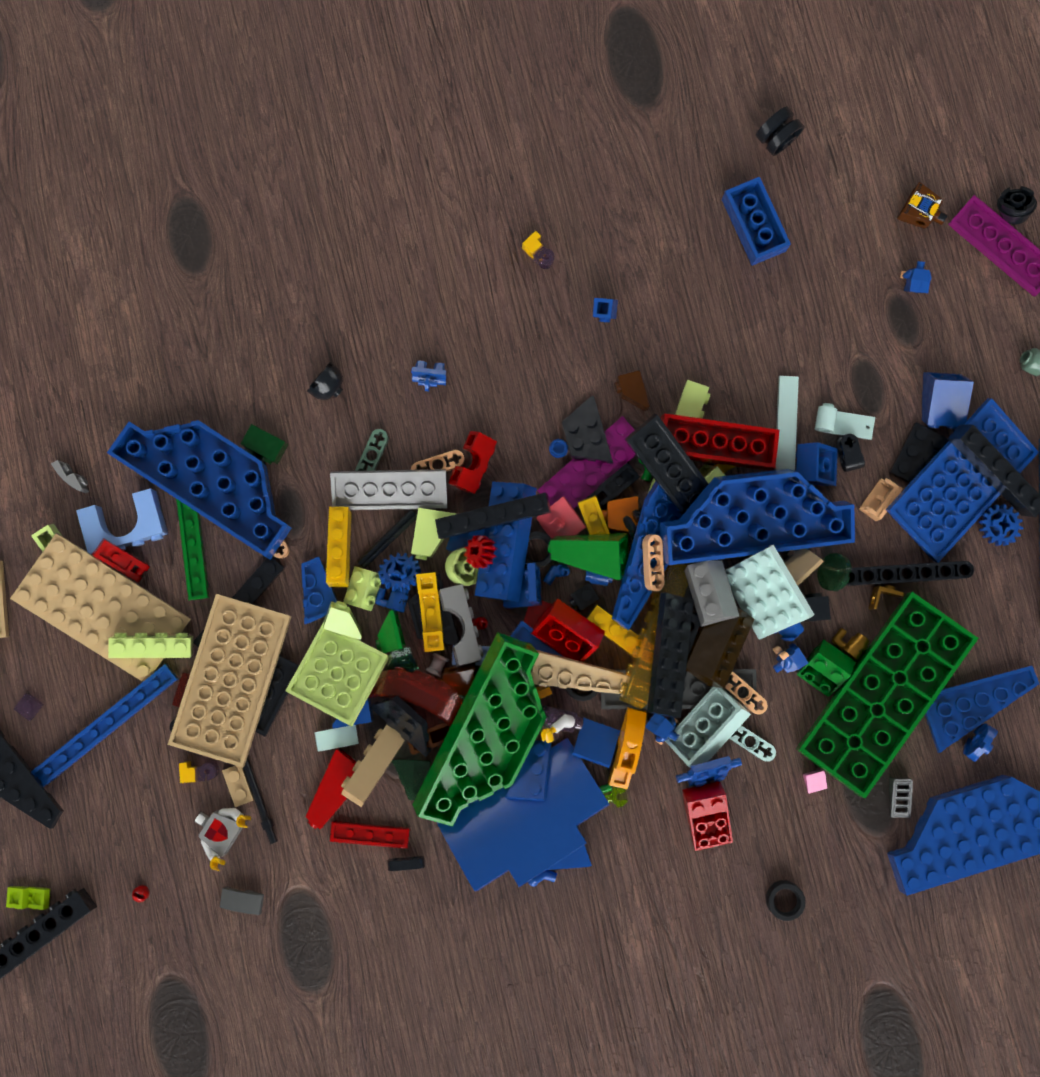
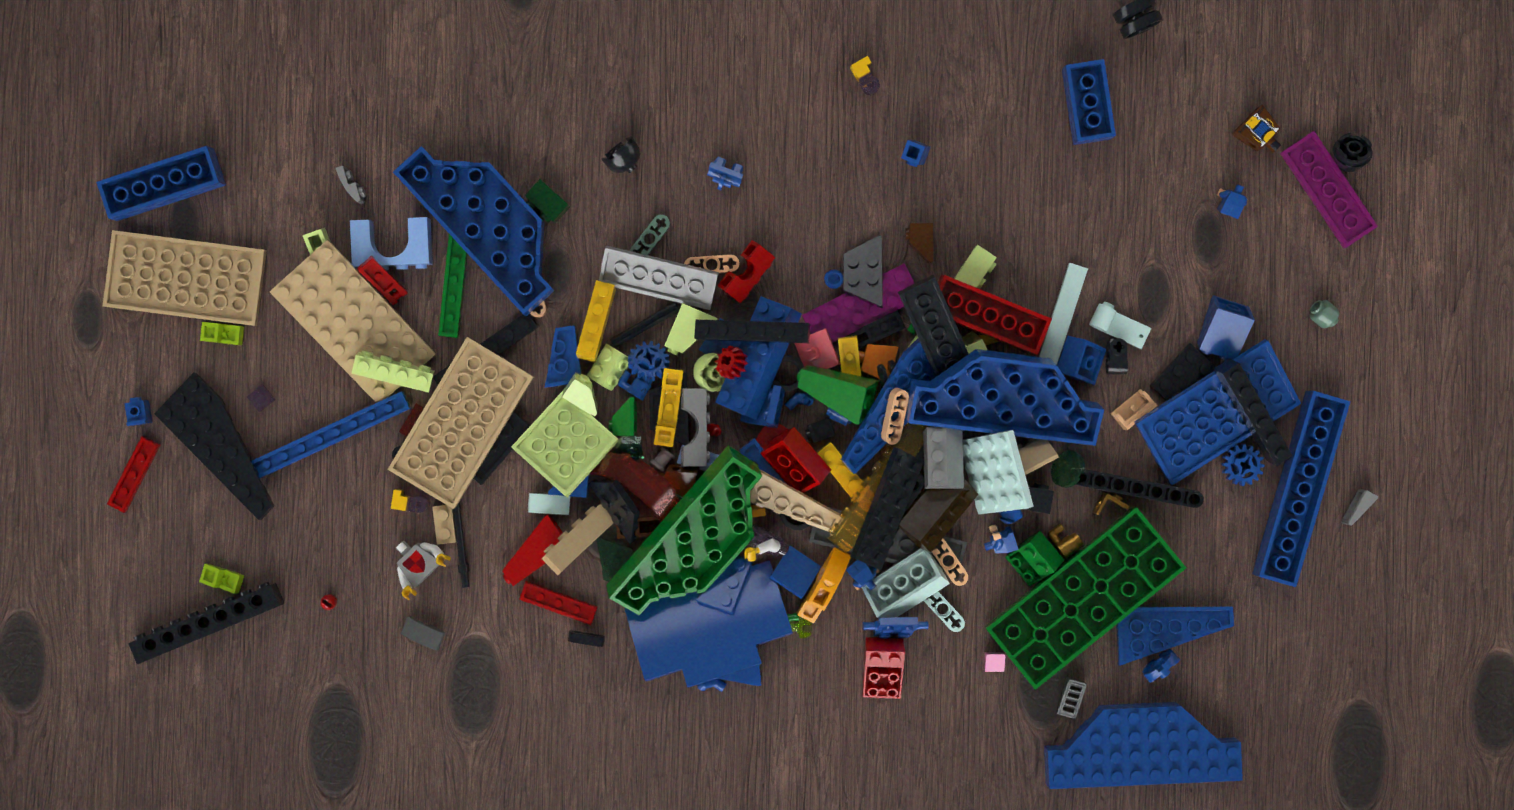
camera: 15 degrees right, 5 degrees up
(796, 911) = (949, 764): black tyre -> none

